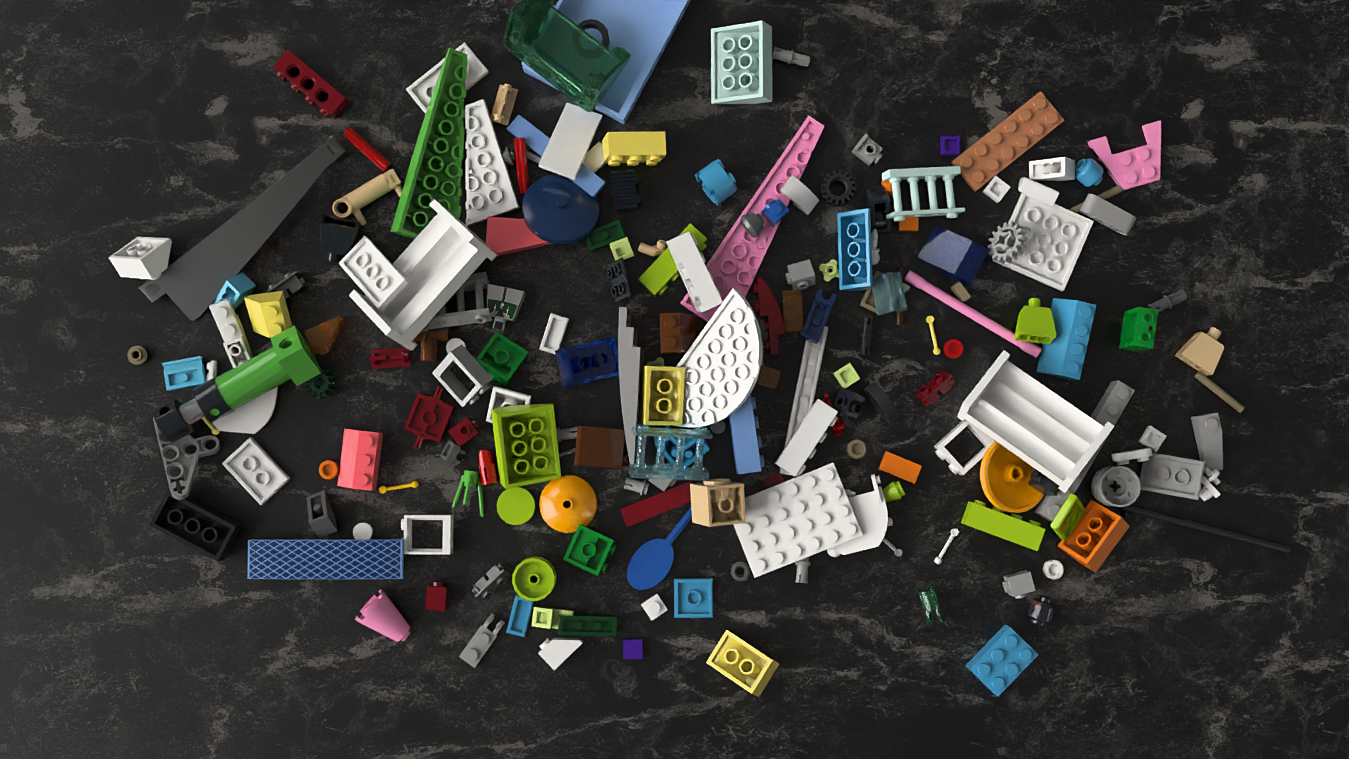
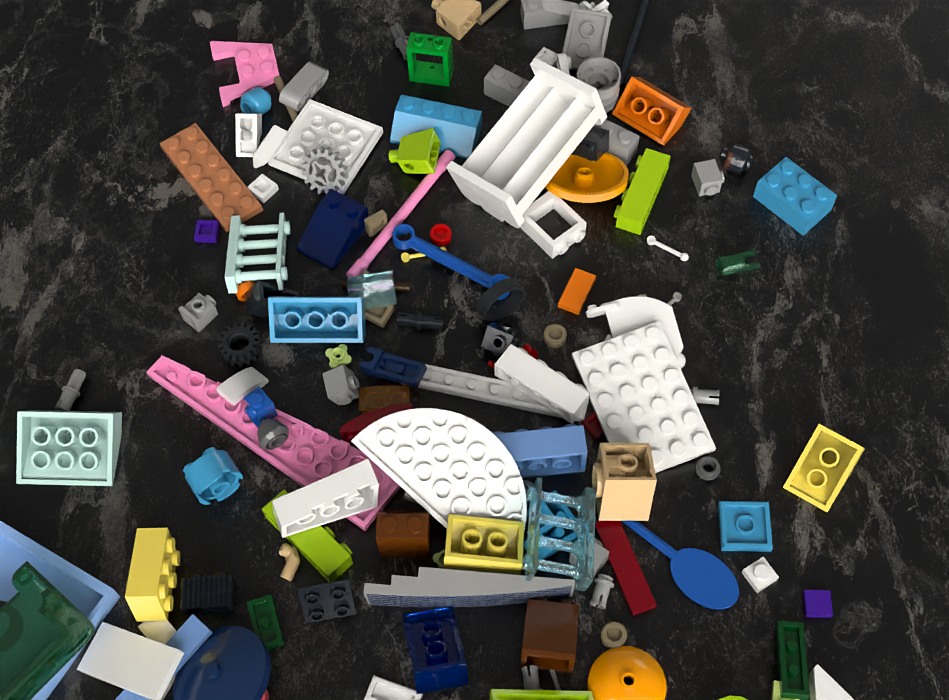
camera: 85 degrees left, 25 degrees down
(590, 550) = (690, 652): green plate -> none
(604, 494) = (613, 635): none -> dark tan tile
(621, 248) = (286, 600): yellowish green plate -> none
(846, 376) = (467, 342): yellowish green plate -> none
(893, 491) = (604, 293): lime cone -> none
(909, 224) = (294, 274): orange tile -> none
(924, 358) = (445, 258): none -> blue piece
(928, 393) = (481, 248): dark red hinge -> none
(1053, 569) = (689, 149): white tile -> none
(1068, 517) = (632, 127): lime tile -> none

